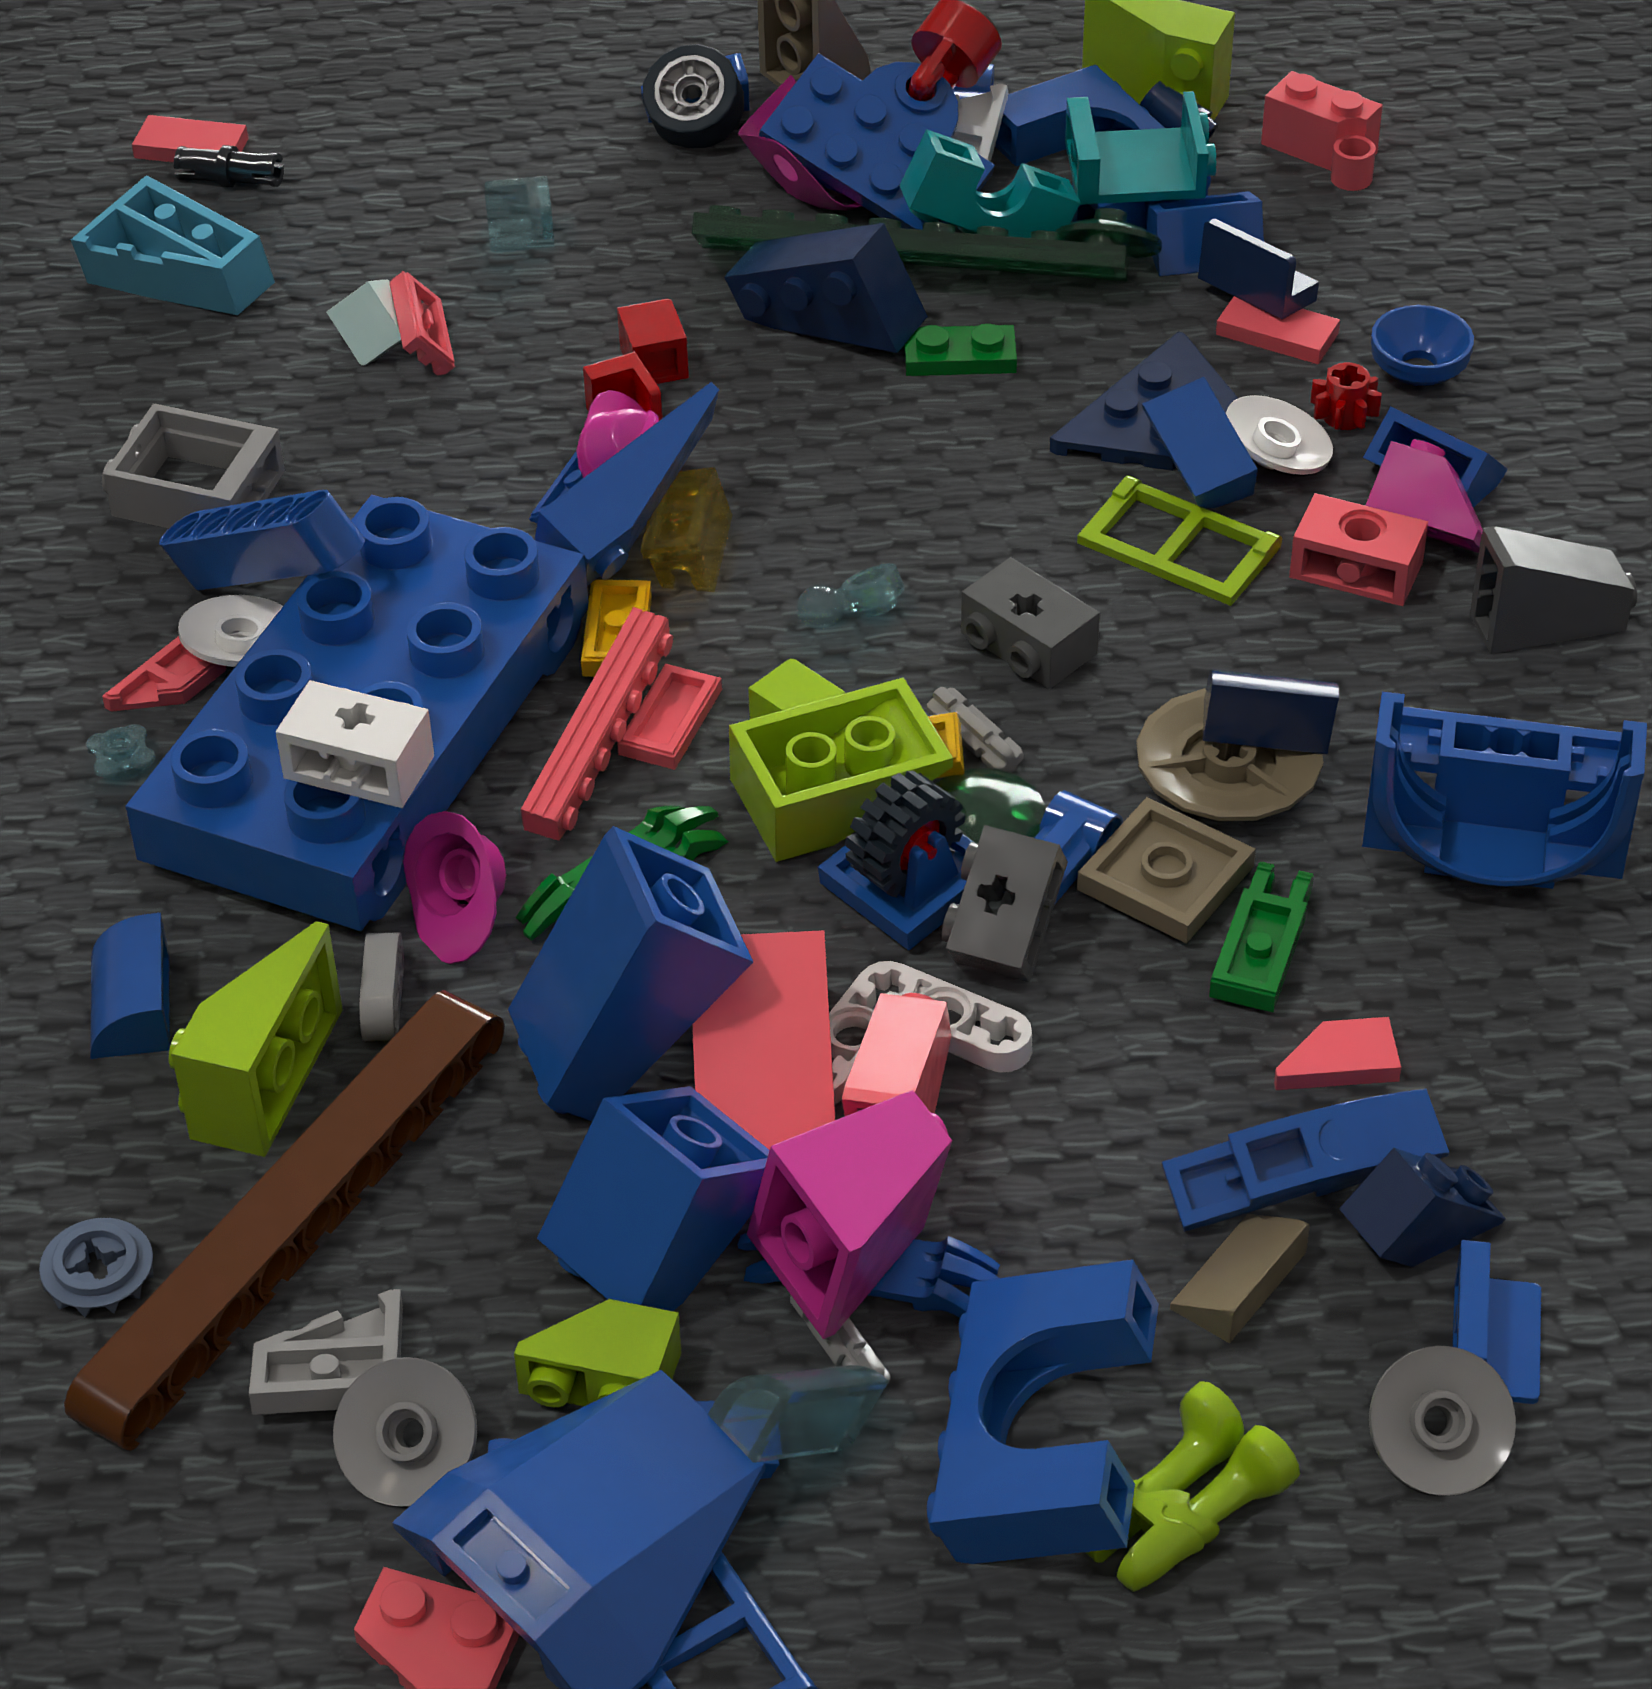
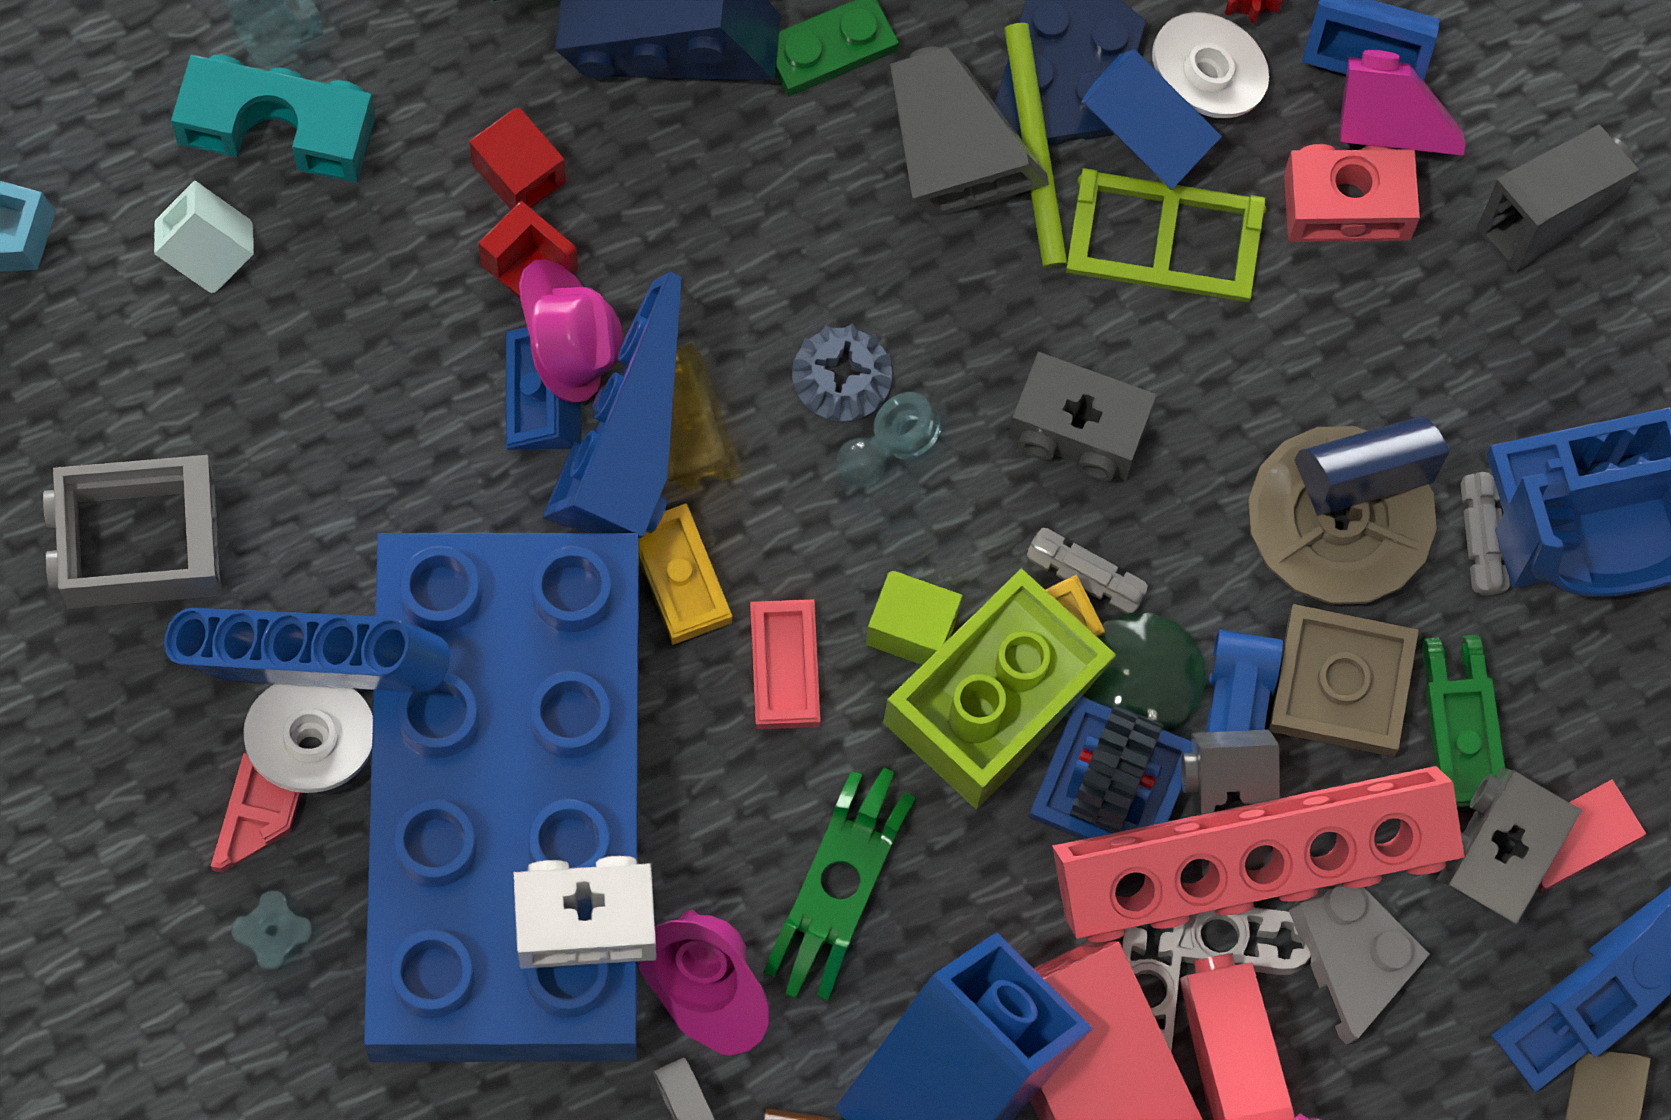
camera: 30 degrees left, 25 degrees up
(422, 324) = (257, 222): coral tile -> none
(511, 280) = (225, 99): none -> teal arch
(597, 725) = (736, 718): coral piece -> none
(836, 883) = (1093, 866): none -> coral brick
(839, 563) = (861, 393): none -> sand blue gear
(1024, 418) = (956, 137): none -> dark grey slope
(1064, 1056) = (1356, 953): none -> light grey wing
(1093, 444) = (1035, 138): none -> lime bar
(1242, 1046) = (1534, 822): none -> dark grey brick
(1349, 830) = (1481, 520): none -> light grey axle

